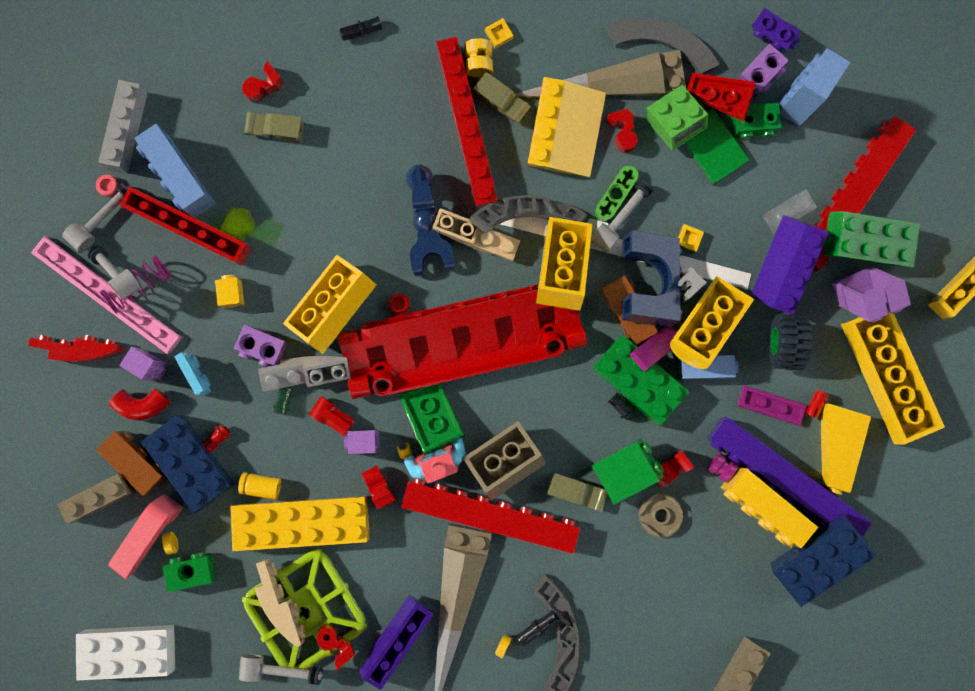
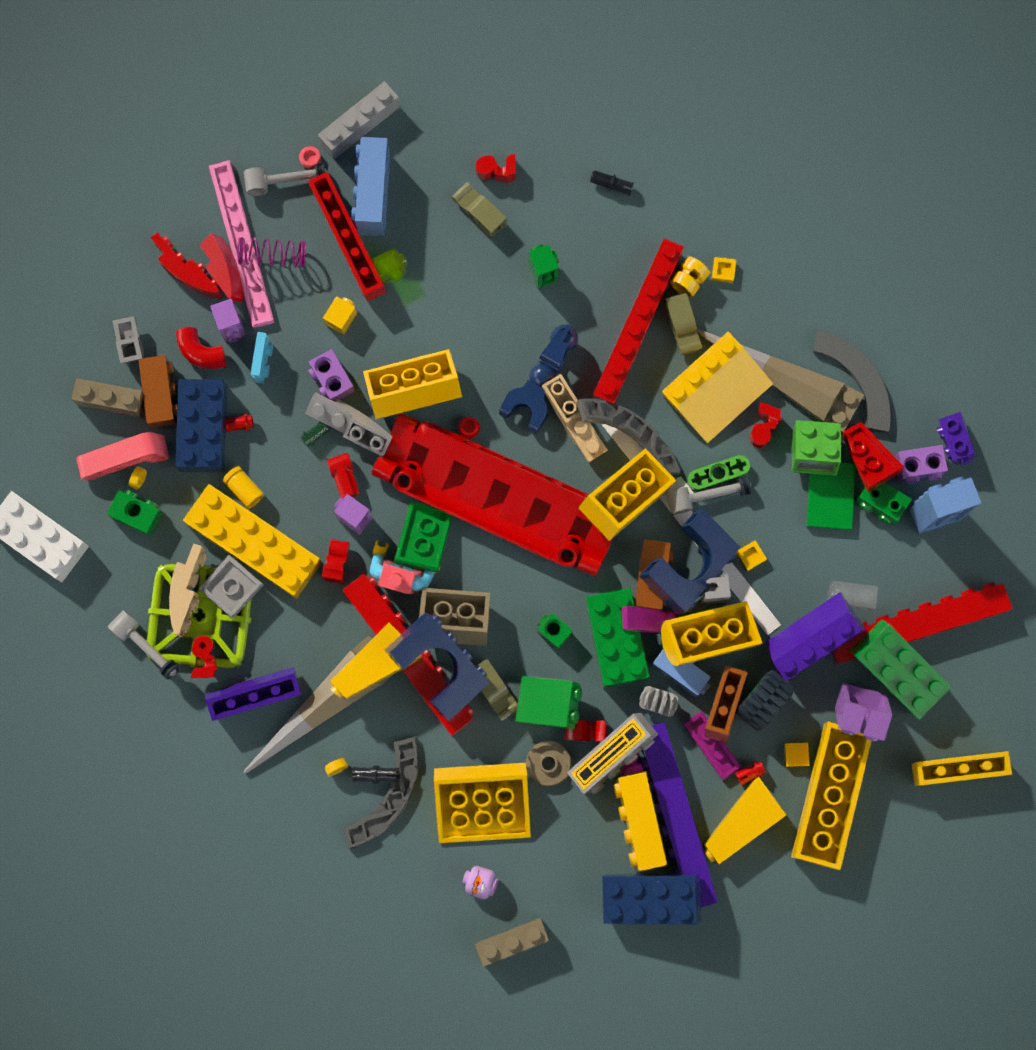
camera: 40 degrees right, 5 degrees down
(75, 440) = (128, 340): none -> light grey brick
(106, 324) = (223, 266): none -> red slope
(123, 282) = (262, 244): light grey piece -> none
(312, 572) = (231, 586): none -> light grey tile
(359, 132) = (543, 265): none -> green brick
(474, 541) = (368, 666): none -> yellow slope
(498, 495) = (465, 679): none -> dark blue arch
(597, 411) = (557, 640): none -> green brick
(621, 406) = (585, 649): black pin -> none
(635, 585) = (482, 802): none -> yellow slope
(682, 647) = (480, 882): none -> lavender head
(708, 472) = (612, 754): none -> brick
(709, 404) = (658, 701): none -> light grey gear
(762, 367) = (726, 704): none -> dark orange brick
(839, 363) = (796, 754): none -> yellow tile

